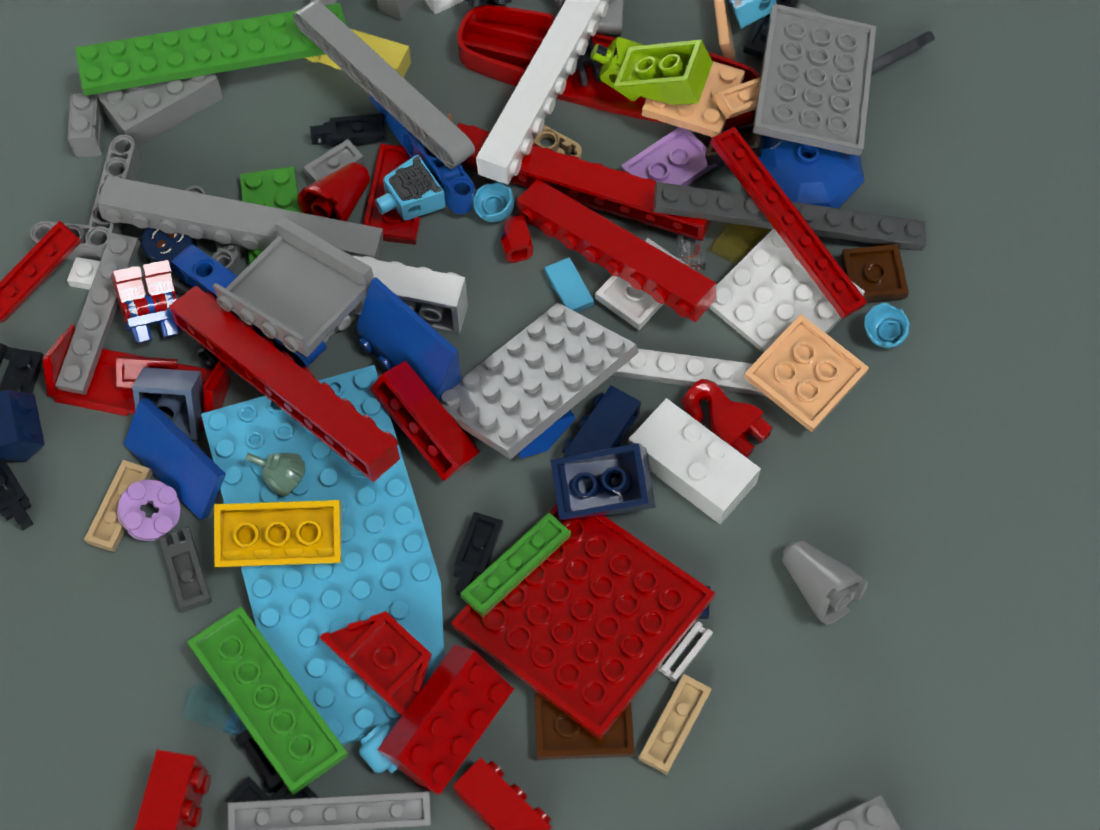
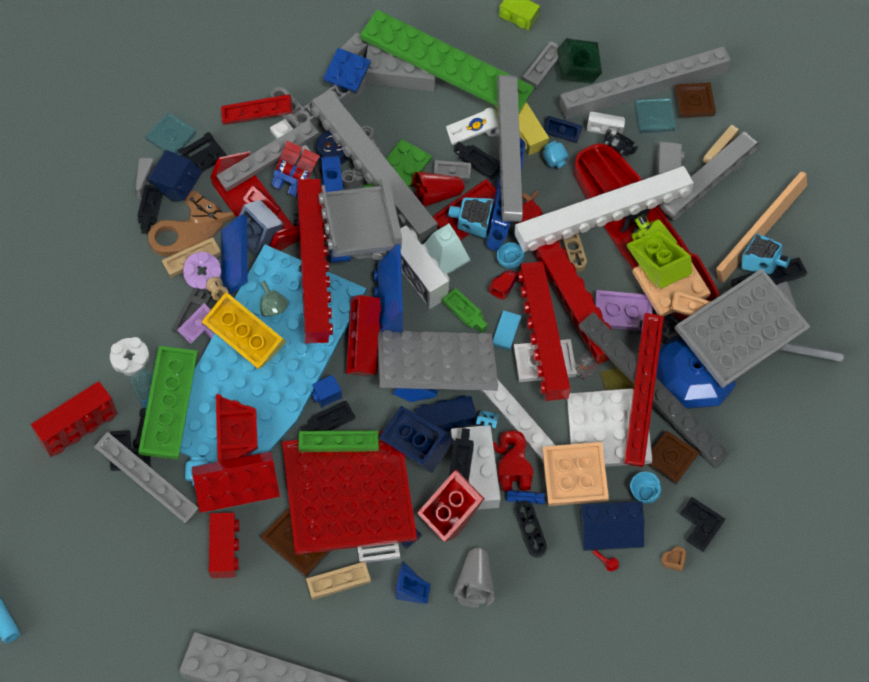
camera: 40 degrees right, 0 degrees up
(94, 460) = (204, 223): none -> medium nougat animal
(103, 143) = (347, 70): none -> blue plate
(148, 672) = (124, 347): none -> white plate
(190, 514) = (214, 289): none -> tan bush
(208, 580) = (193, 325): none -> lavender plate
(310, 97) = (474, 125): none -> white door
(411, 28) = (563, 129): none -> dark blue slope
(418, 246) = (447, 249): none -> light aqua slope
(431, 60) = (555, 155): none -> medium azure head
(441, 521) = (326, 391): none -> blue brick
(503, 301) = (465, 310): none -> bright green hinge
(655, 393) = (488, 419): none -> medium azure tile
(679, 458) = (462, 454): none -> black hinge
(722, 521) = (451, 506): none -> red slope
(757, 654) = (411, 586): none -> blue slope
(775, 445) = (528, 496): none -> blue axle
(817, 486) = (530, 543): none -> black beam
(894, 396) = (612, 526): none -> dark blue slope
(932, 439) = (611, 564): none -> red hand
(977, 308) = (707, 523): none -> black plate
(986, 375) = (674, 559): none -> medium nougat tile

